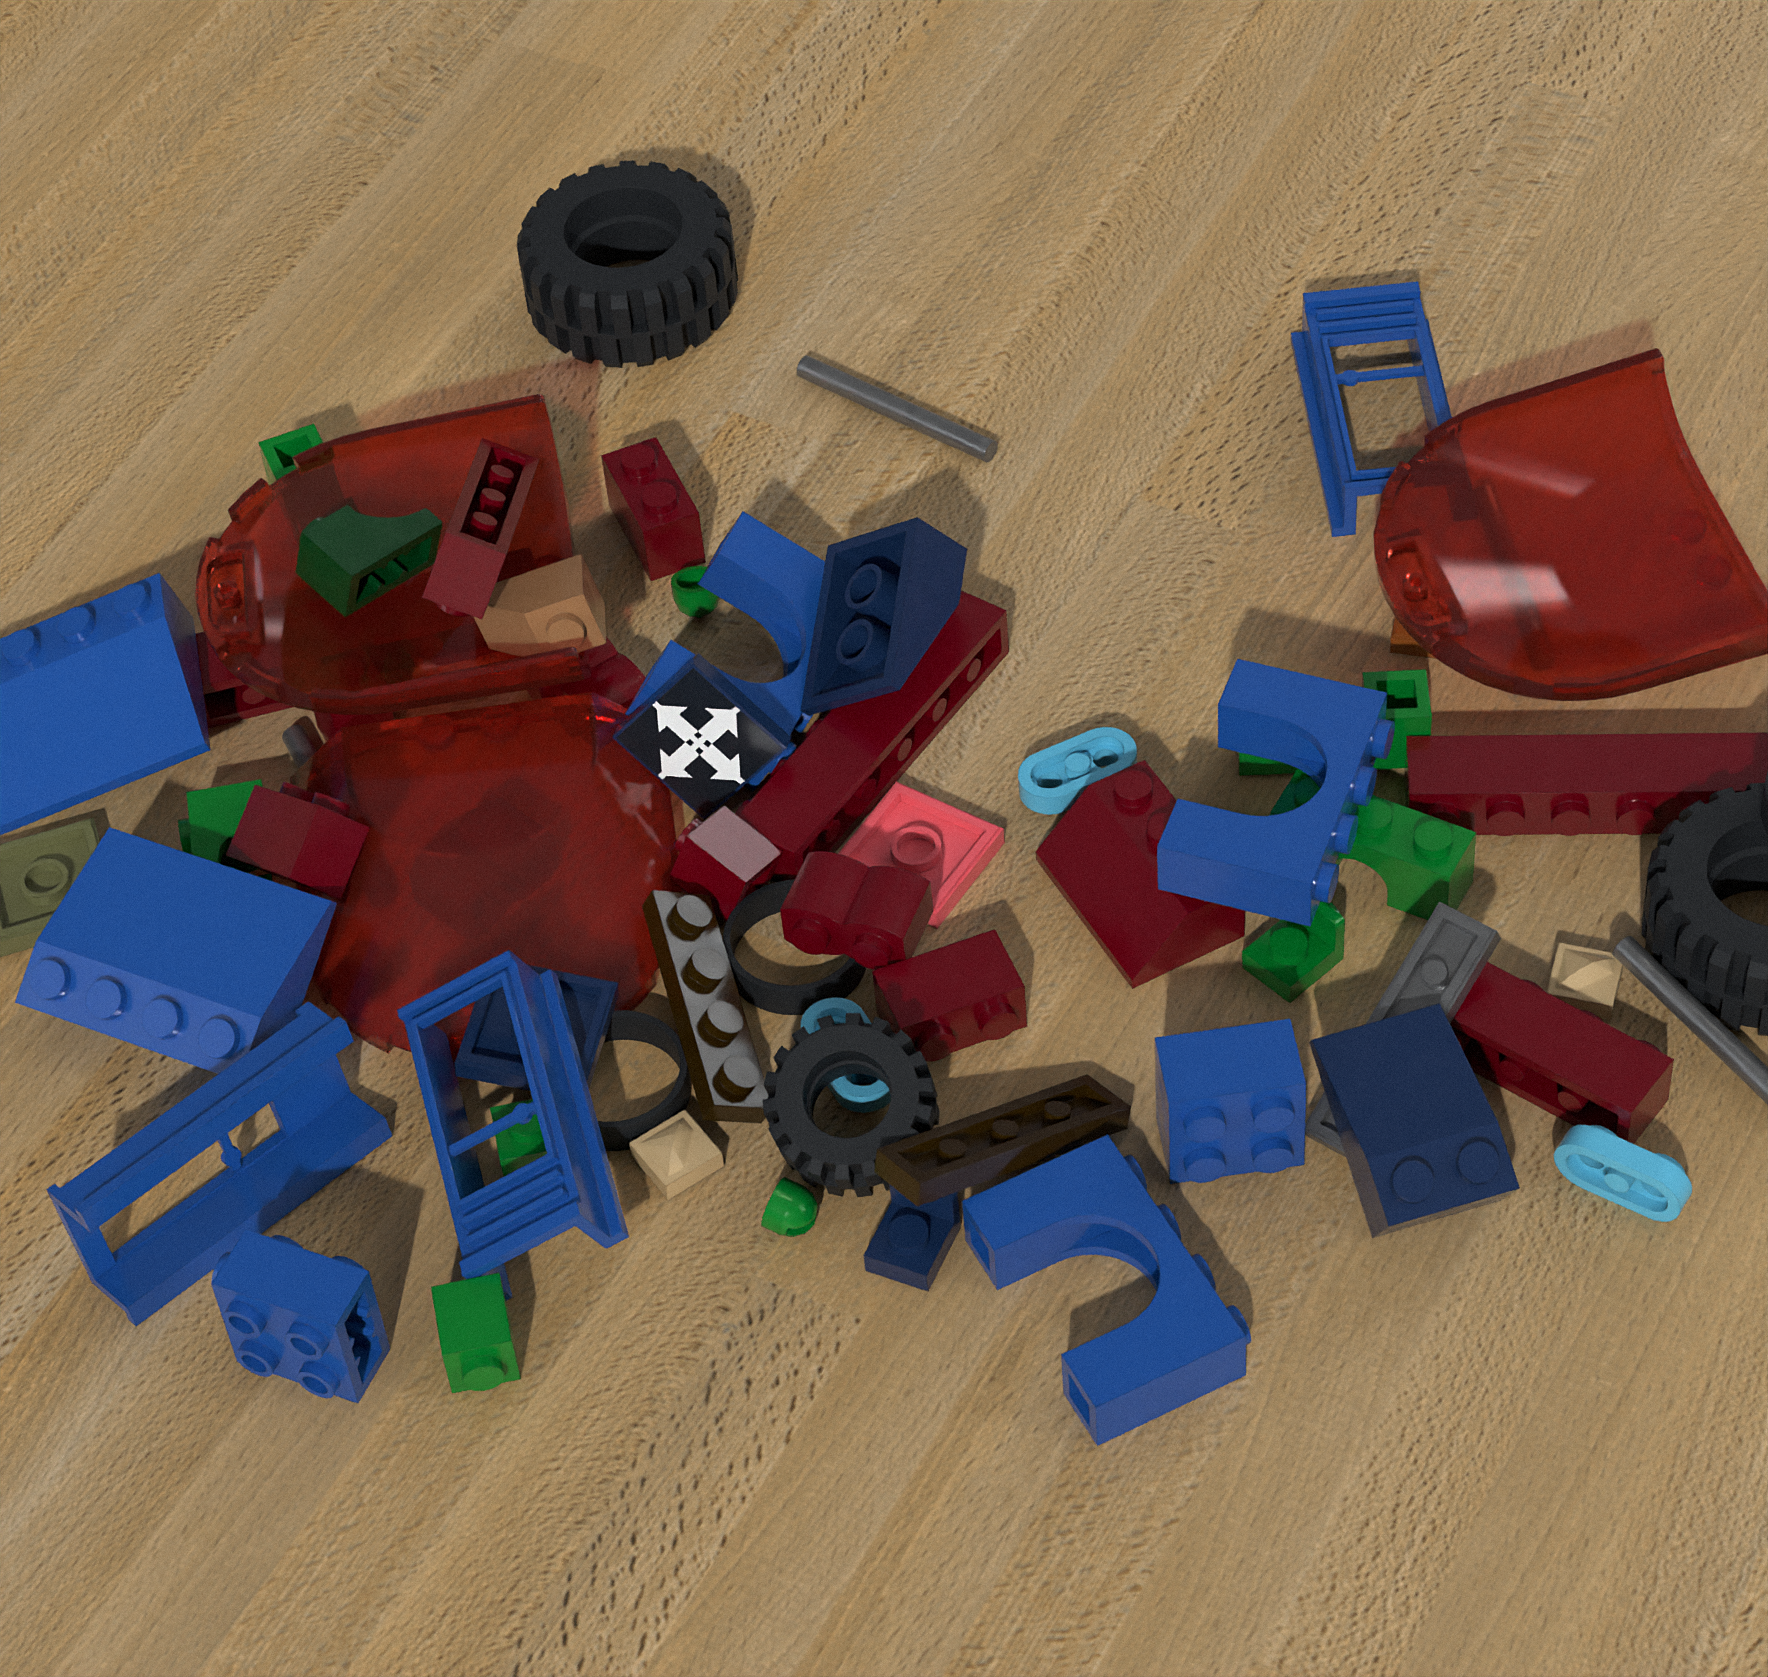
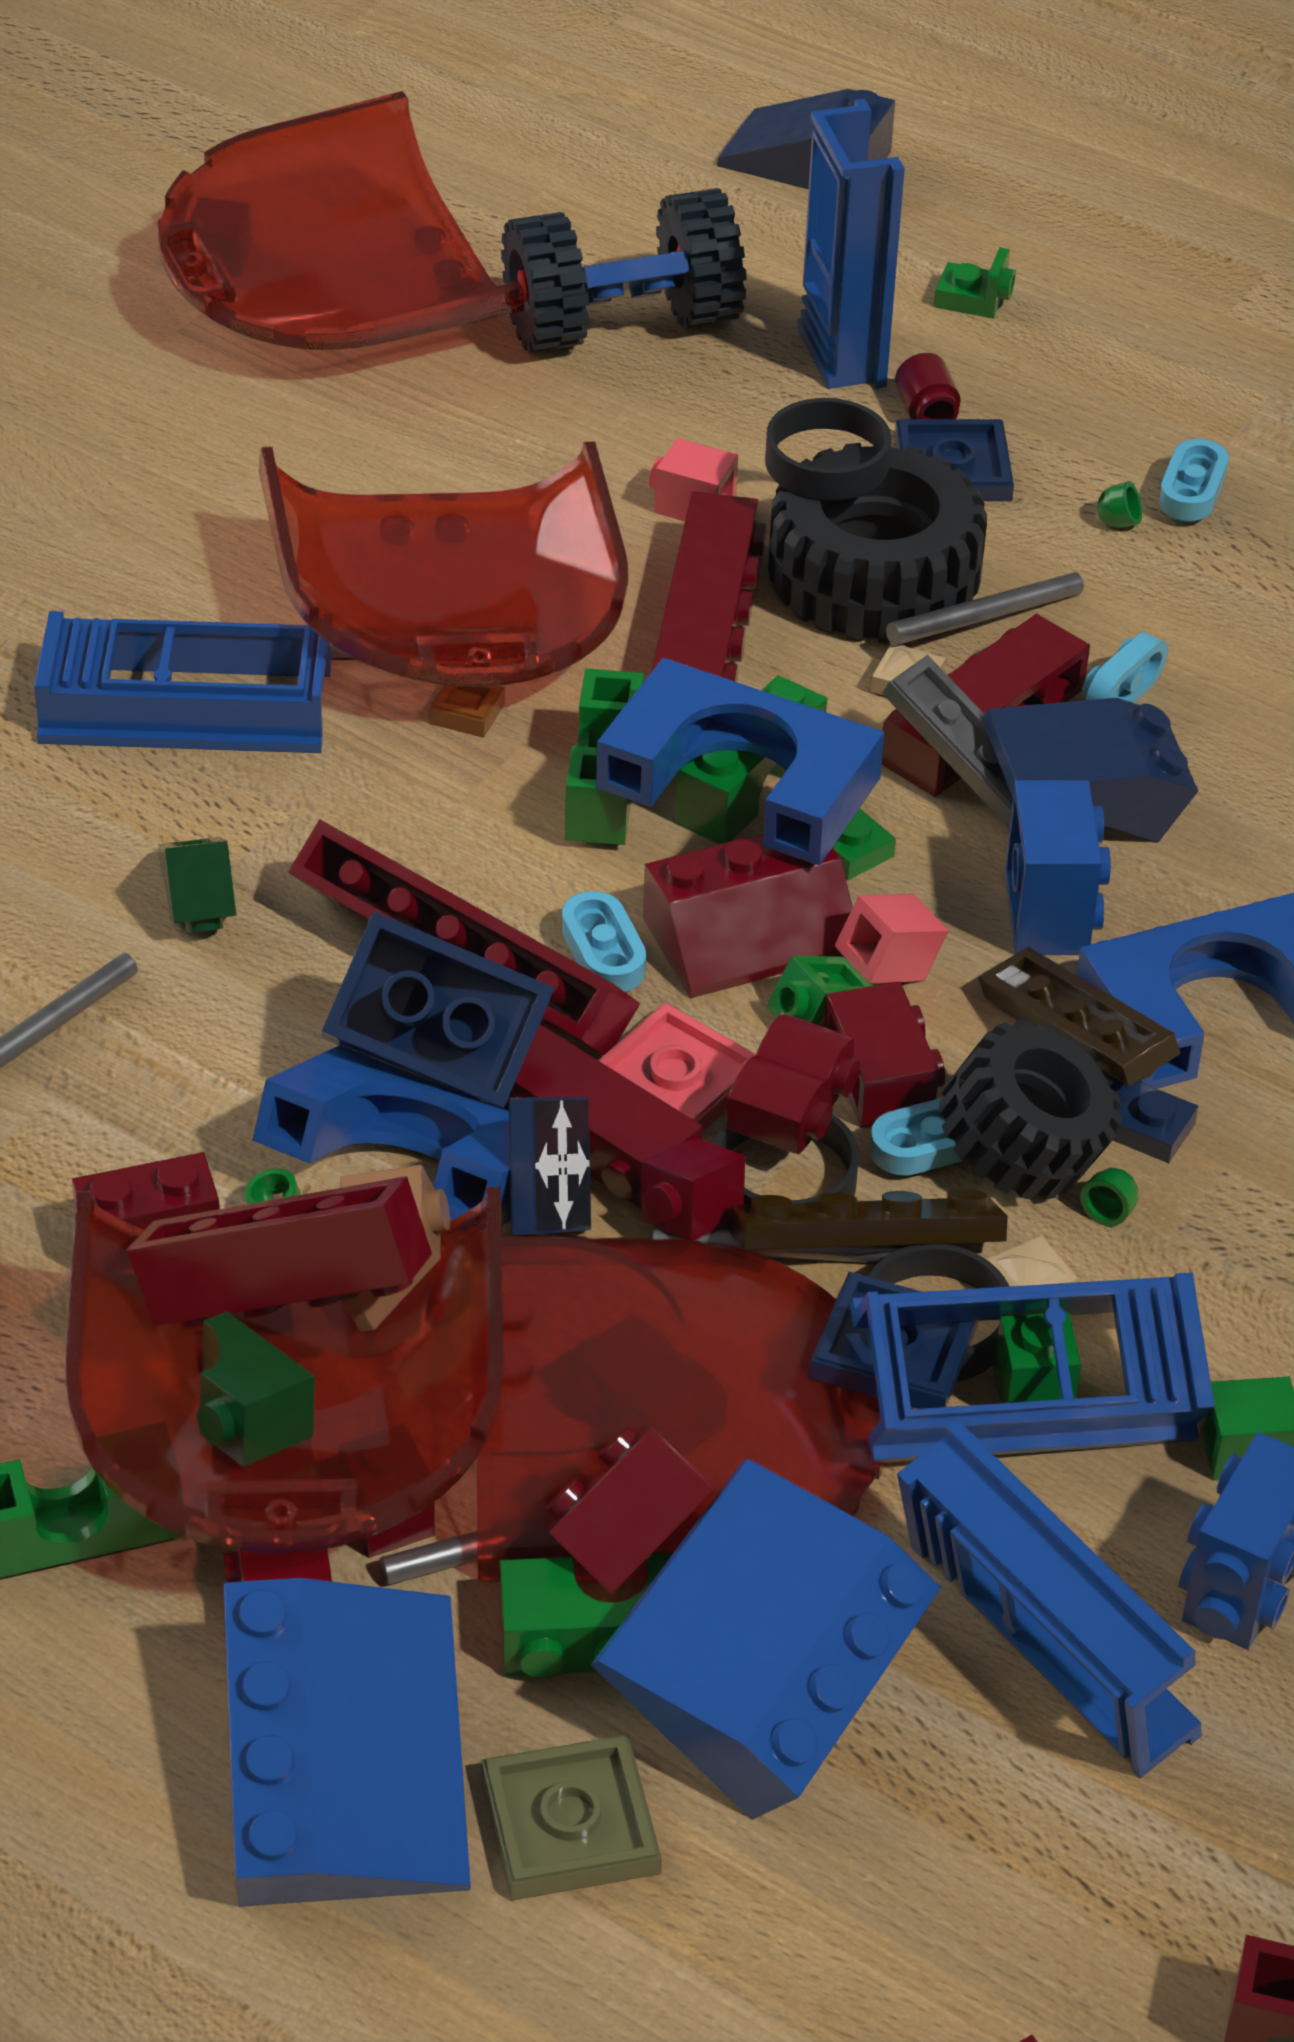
camera: 90 degrees left, 5 degrees down
(1031, 656) = (368, 881): none -> dark red brick
(1040, 946) = (808, 981): none -> green bracket
(1090, 459) = (198, 882): none -> dark green arch
(1111, 987) = (891, 938): none -> coral brick

